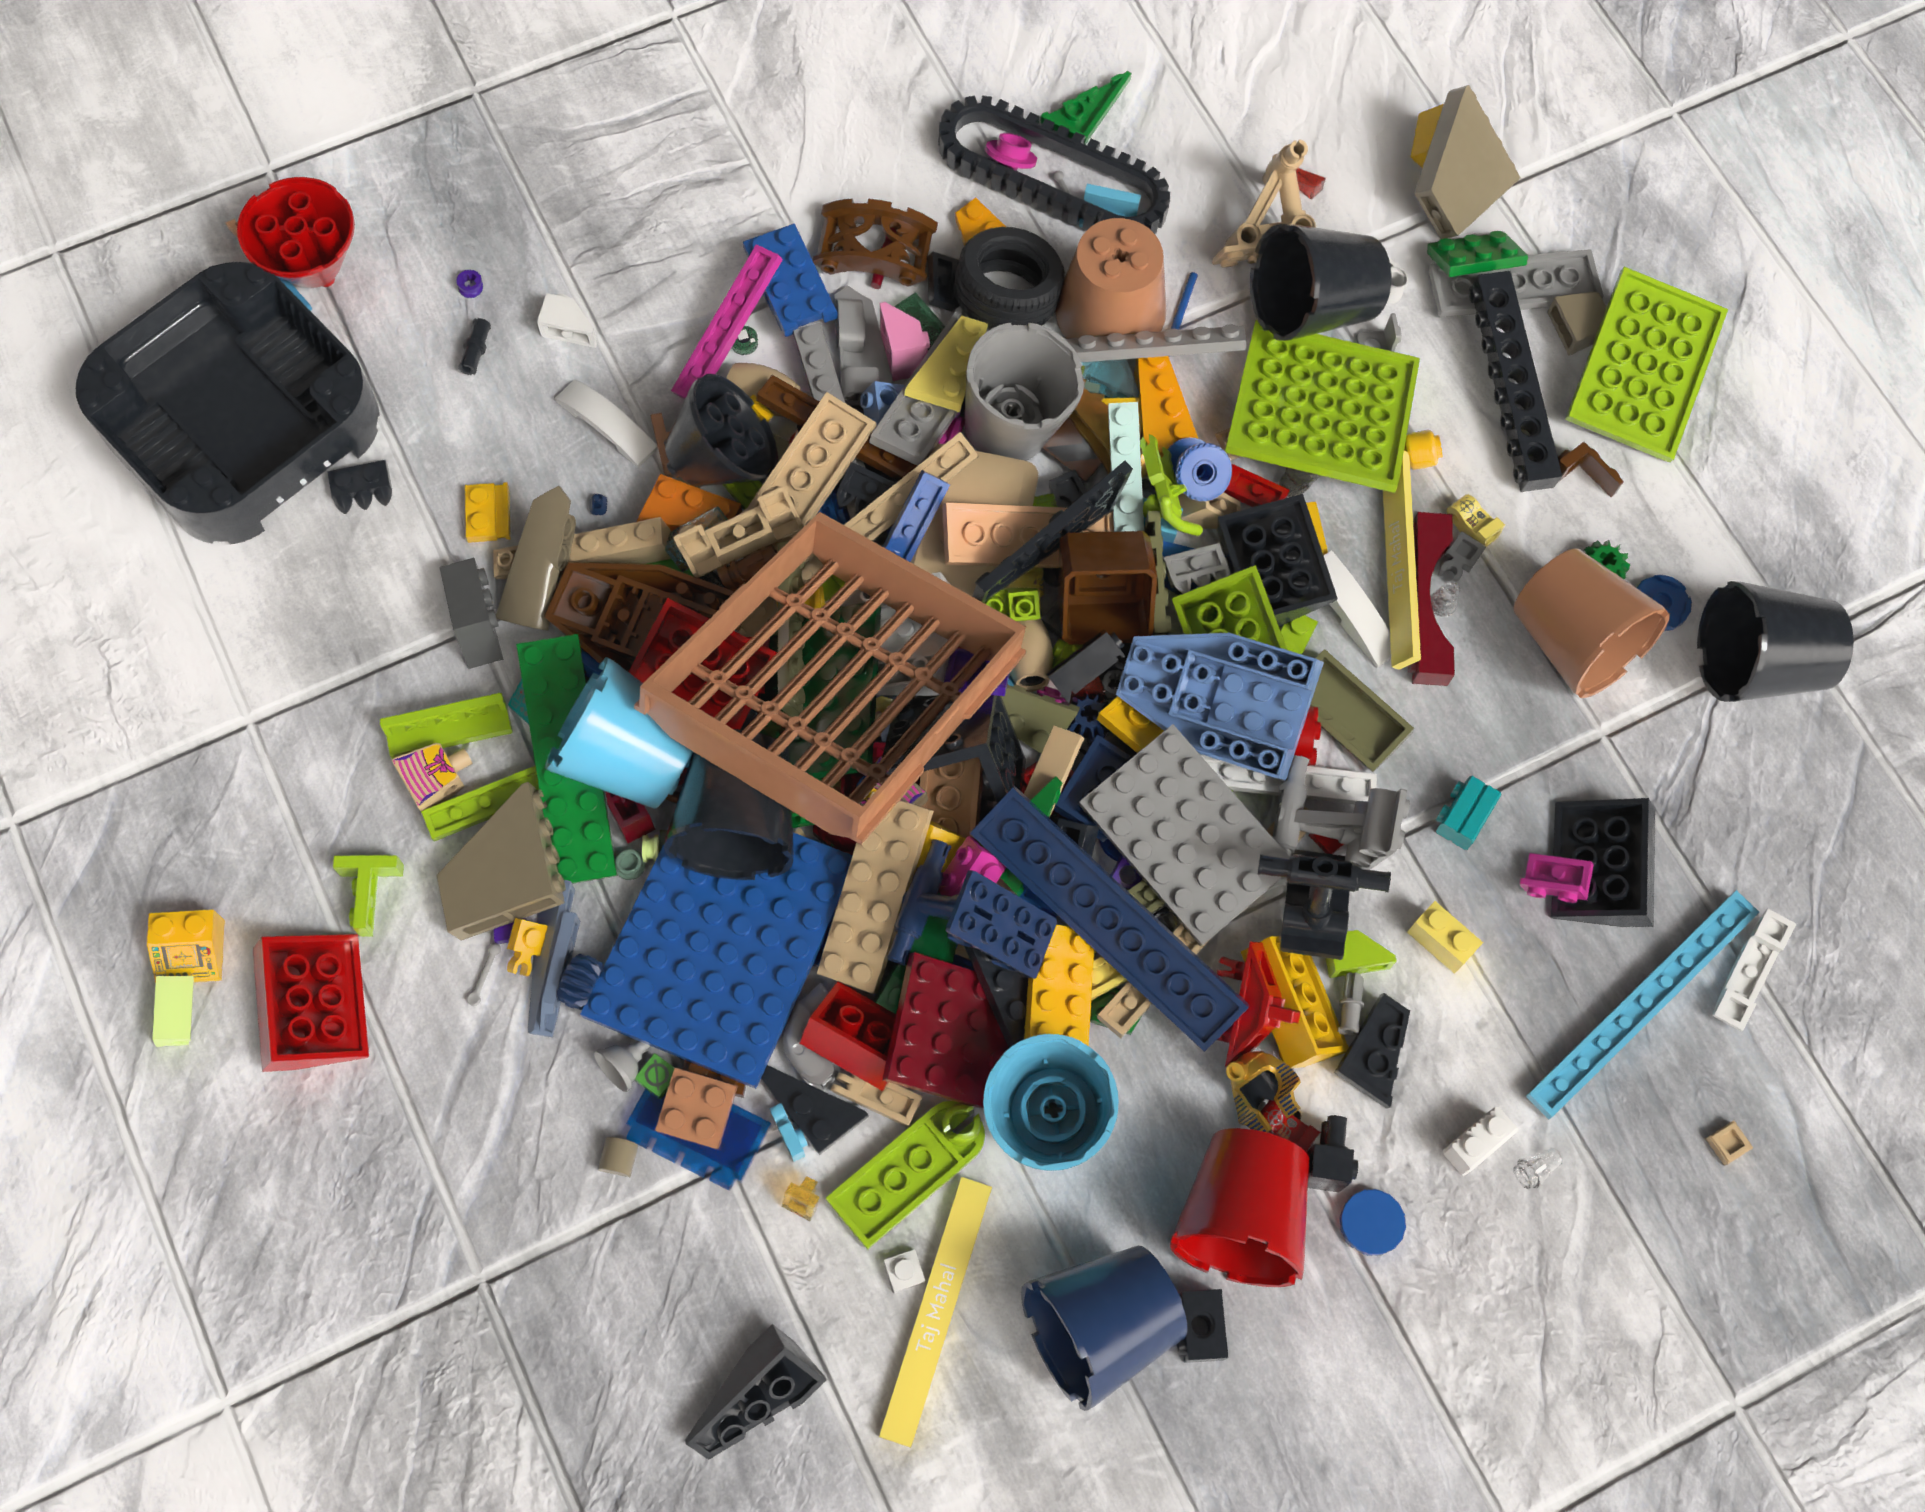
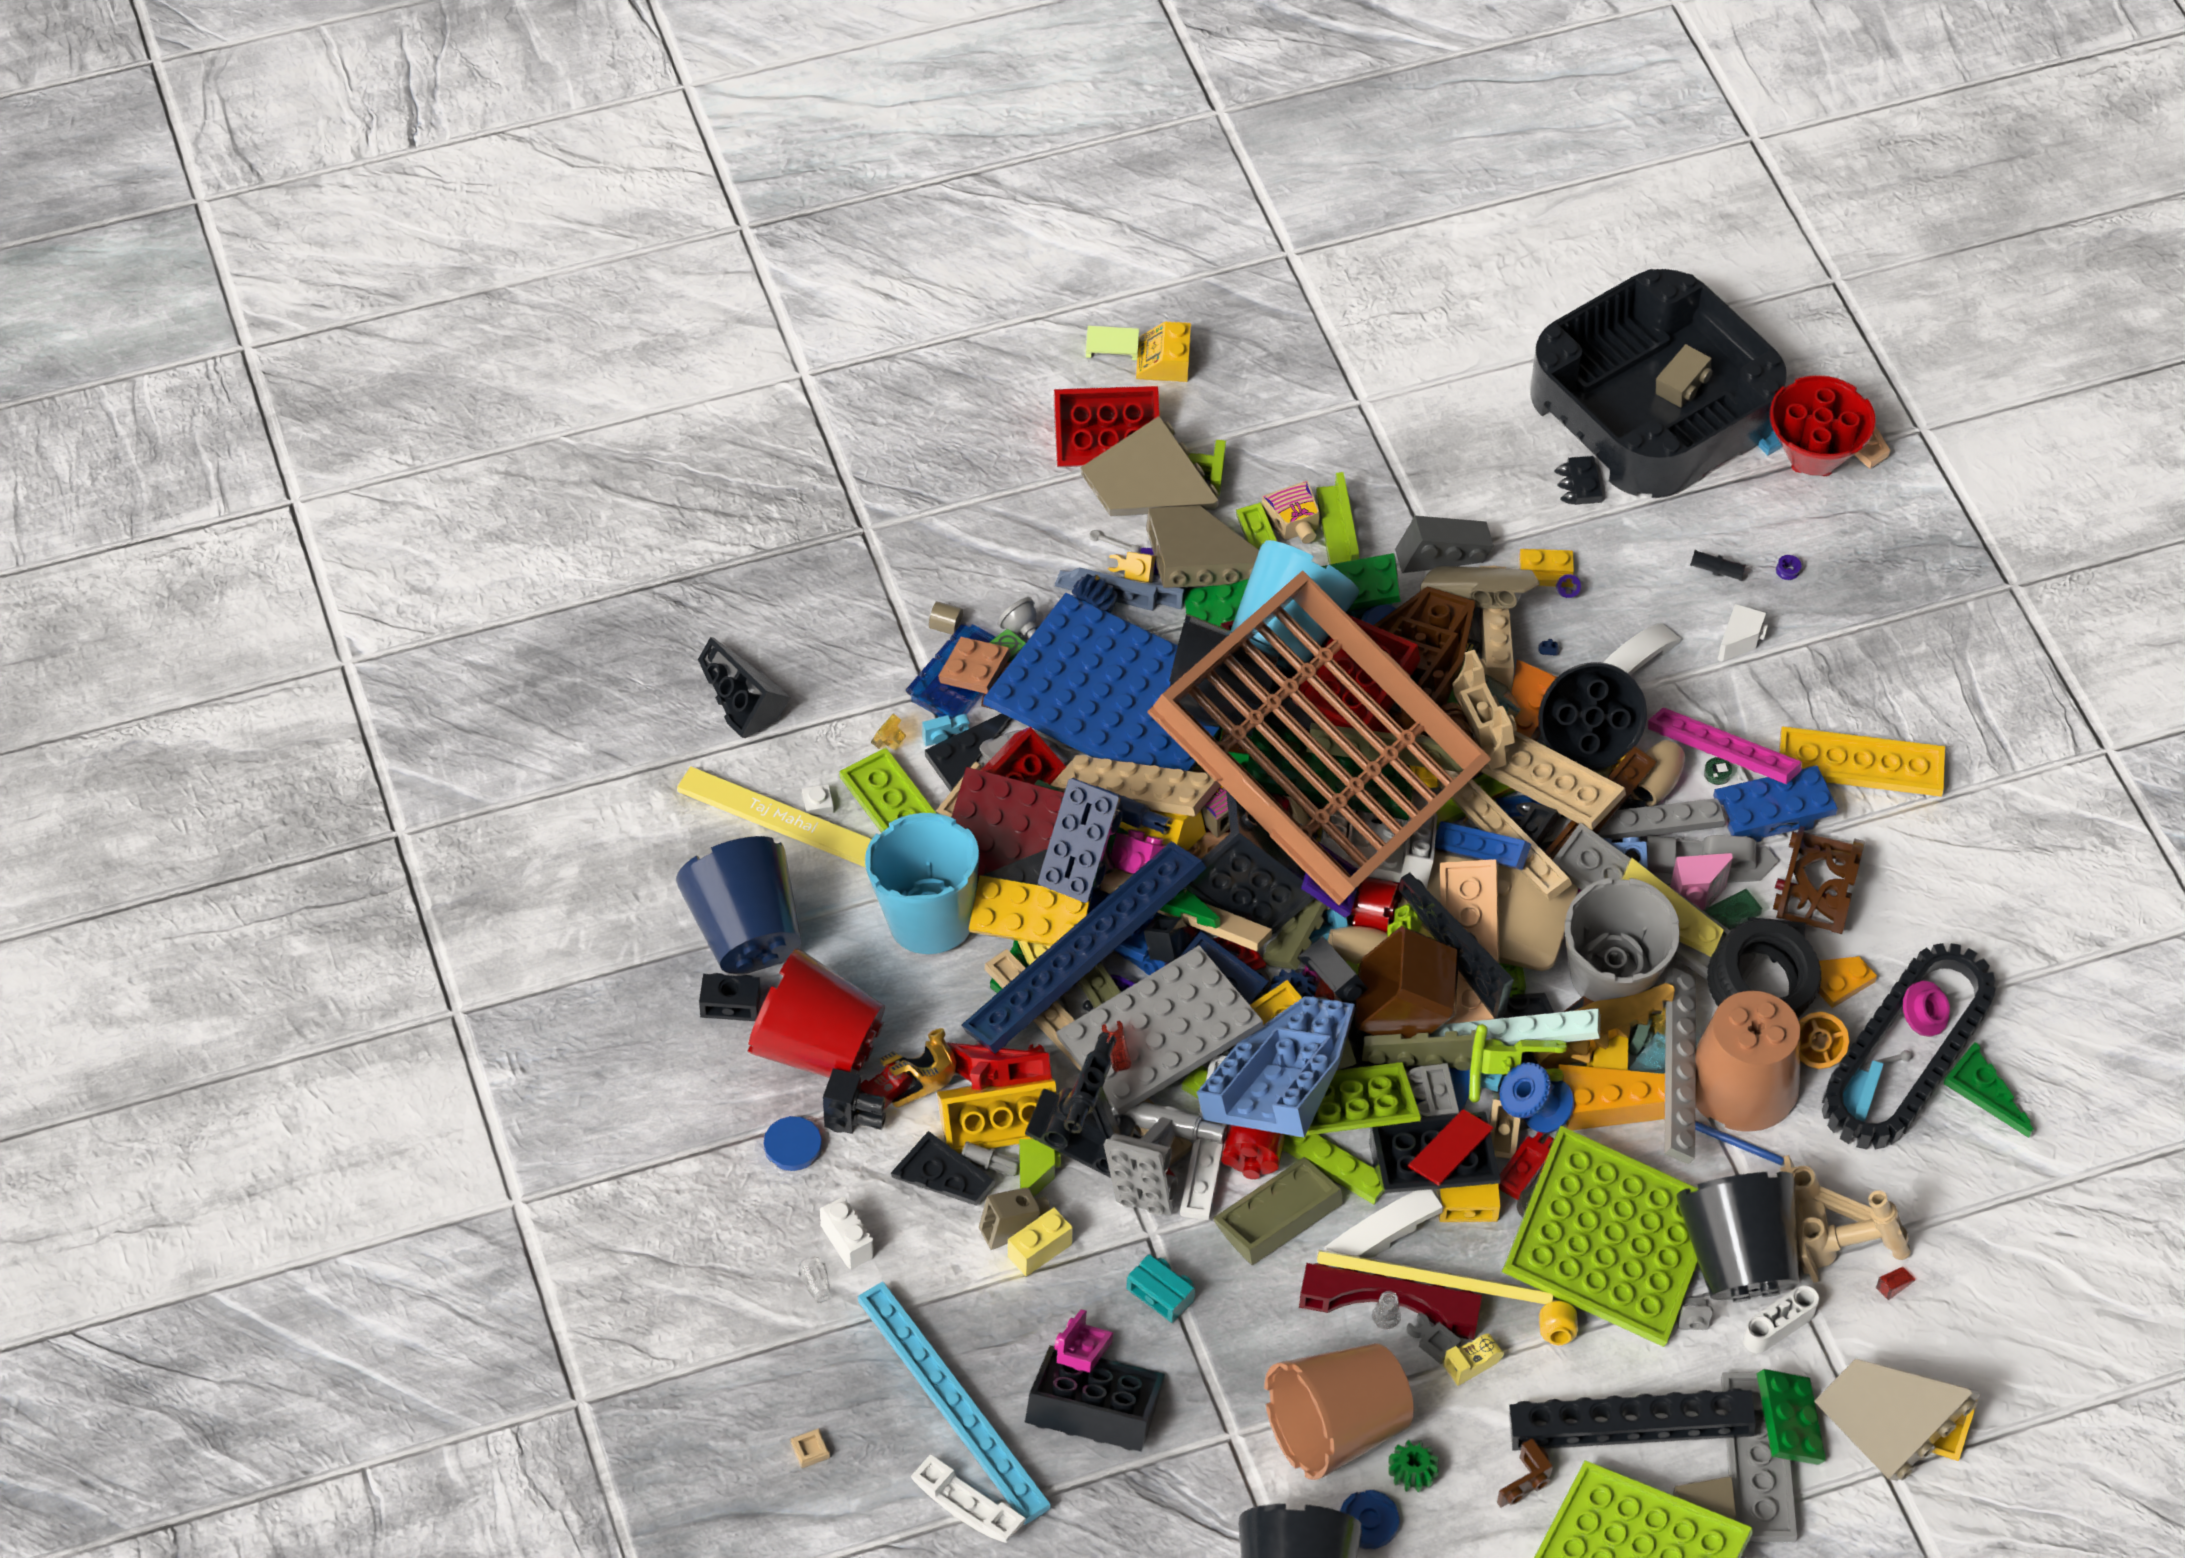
camera: 100 degrees right, 15 degrees down
(218, 378) = (1684, 376): none -> dark tan brick
(394, 937) = (1147, 473): none -> dark tan slope
(509, 489) = (1574, 580): none -> dark purple bush
(718, 213) = (1868, 760): none -> yellow plate
(1065, 230) = (1822, 1040): none -> light orange cylinder
(1231, 869) = (1120, 1055): none -> clear red bar
(1272, 542) = (1450, 1147): none -> red piece
(1425, 967) = (1008, 1214): none -> dark tan torso

